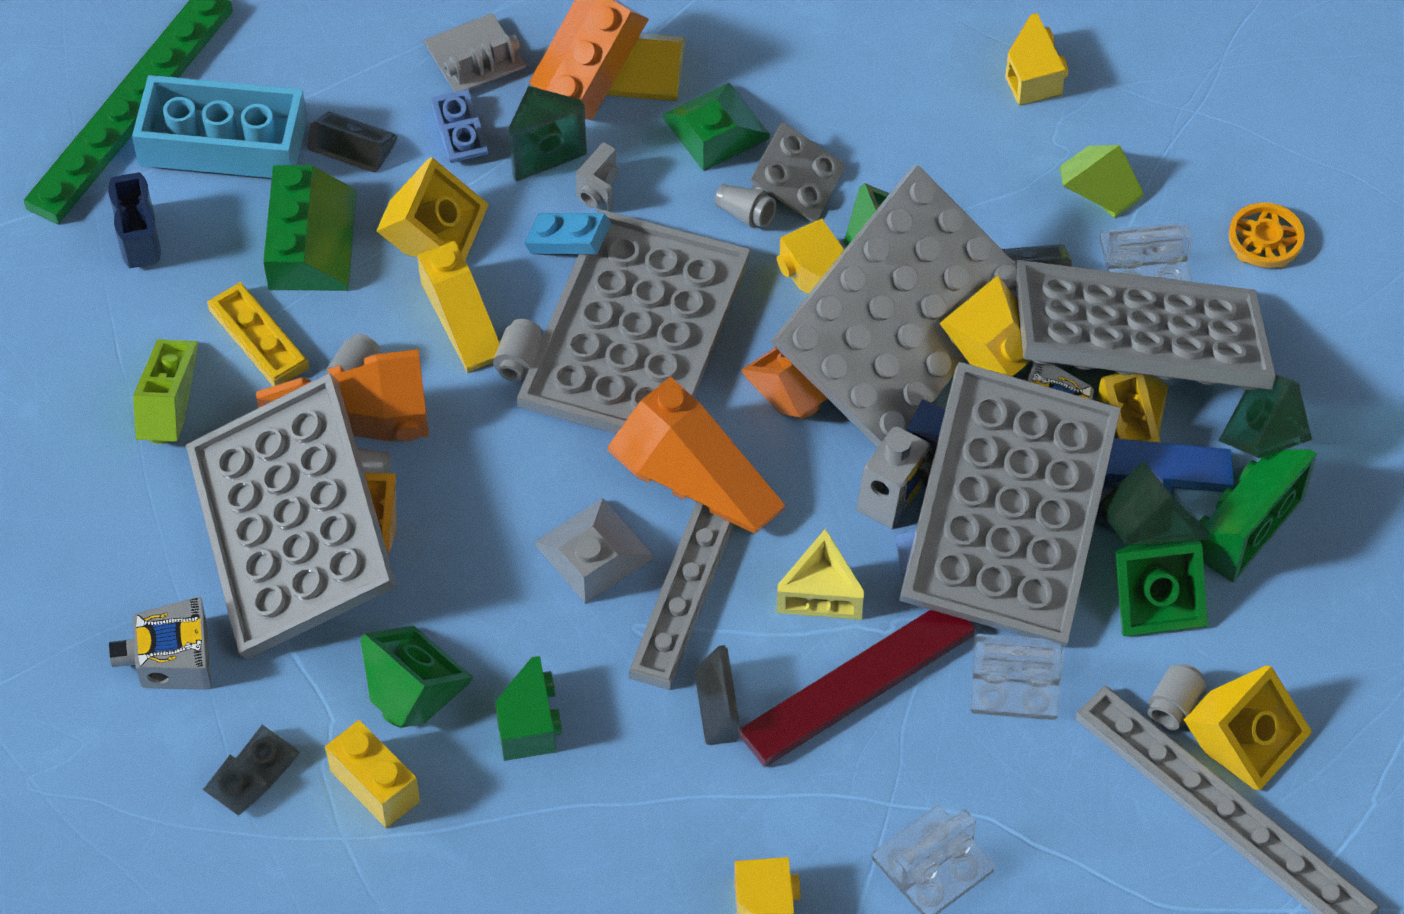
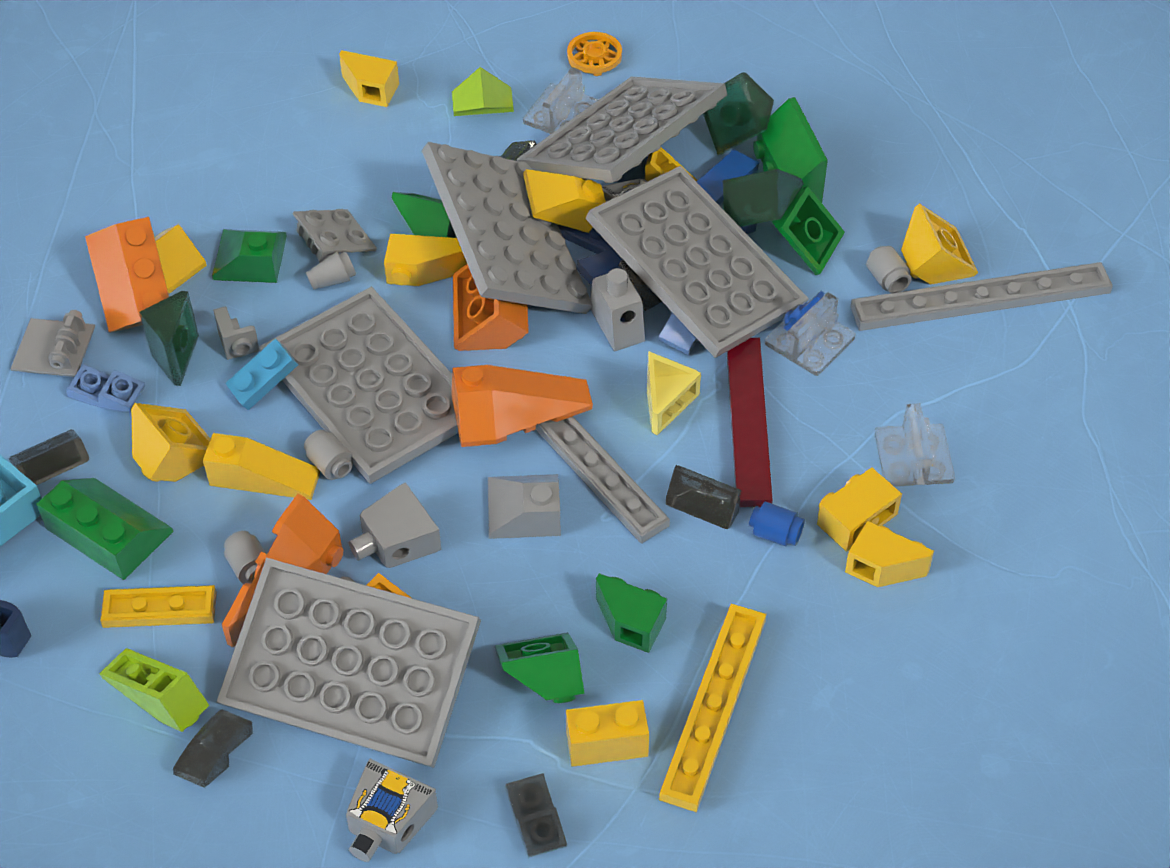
camera: 55 degrees left, 5 degrees down
(127, 472) = (210, 748): none -> clear smoke slope
(475, 460) = (396, 529): none -> light grey torso
(475, 848) = (712, 708): none -> yellow plate
(733, 781) = (776, 524): none -> blue brick
(817, 844) = (860, 500): none -> yellow brick
(1023, 639) = (792, 317): none -> blue piece

